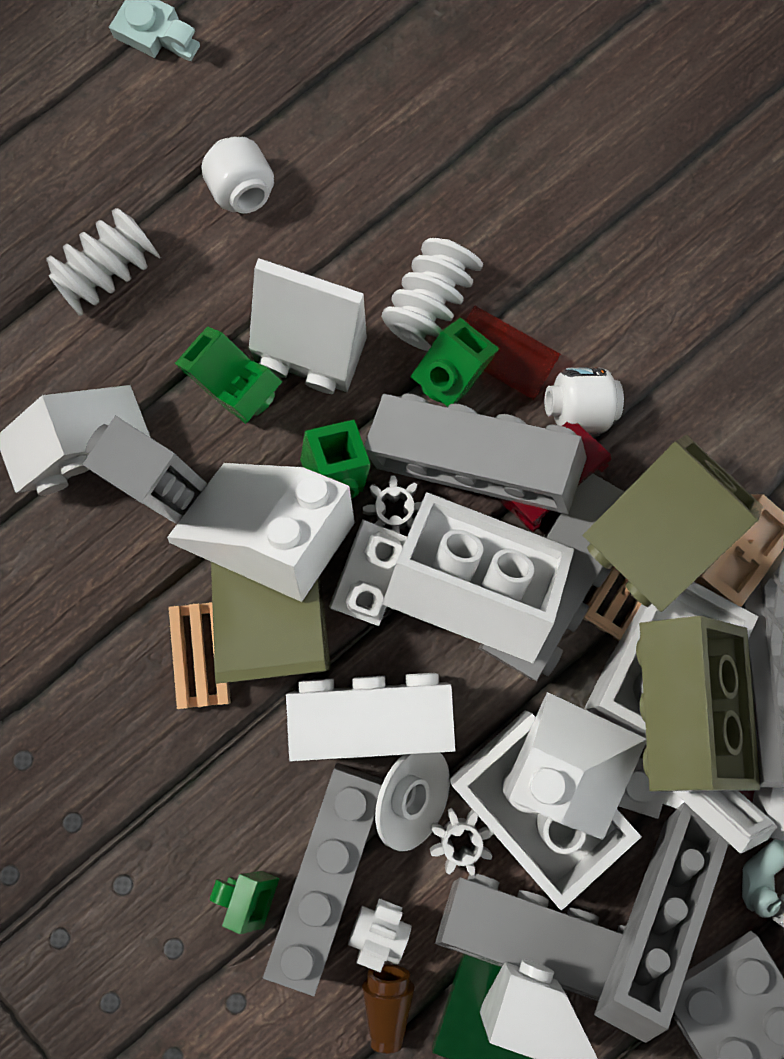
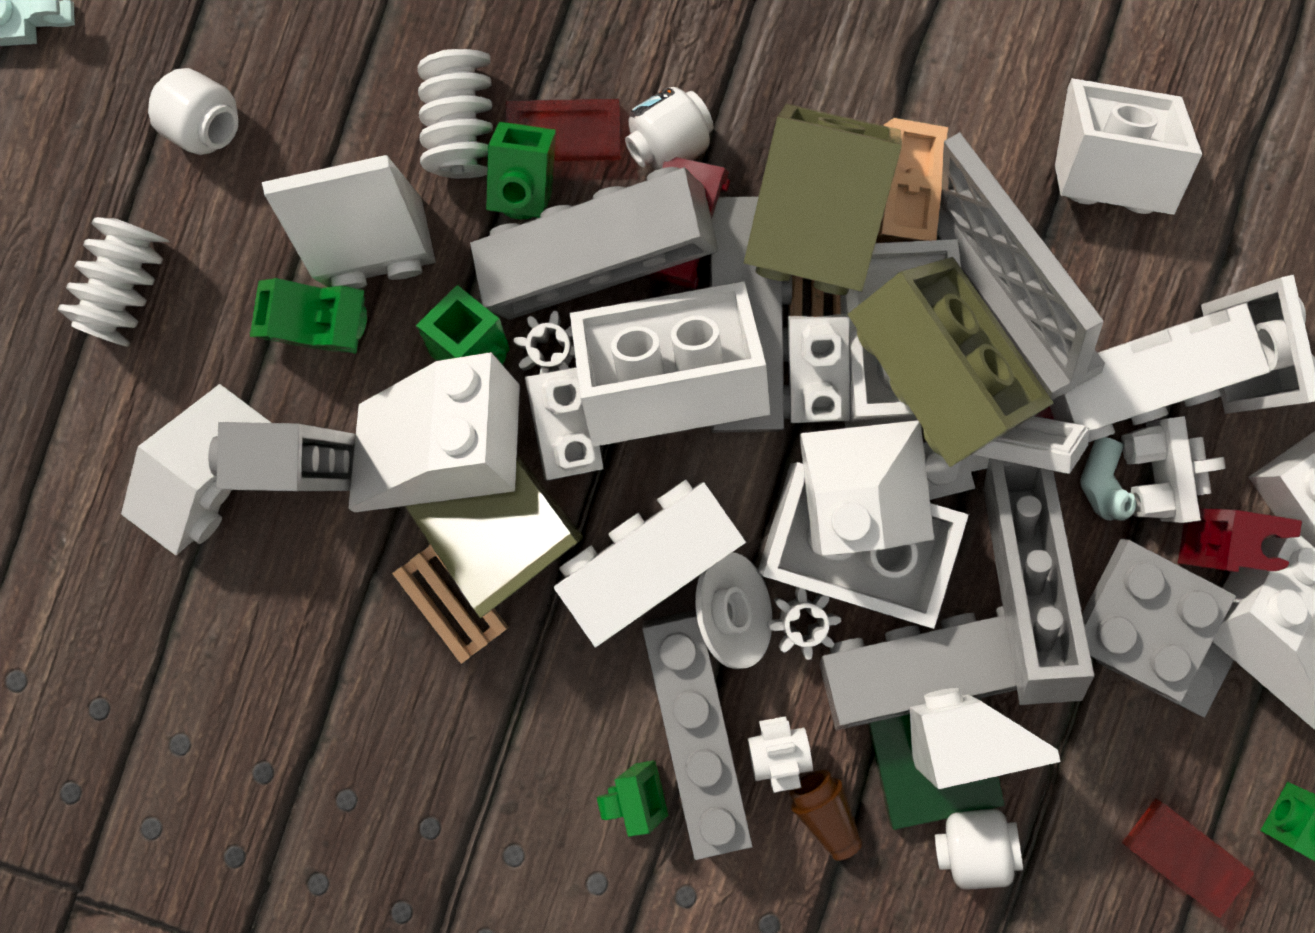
camera: 30 degrees left, 5 degrees up
(591, 650) = (819, 368): none -> white hips

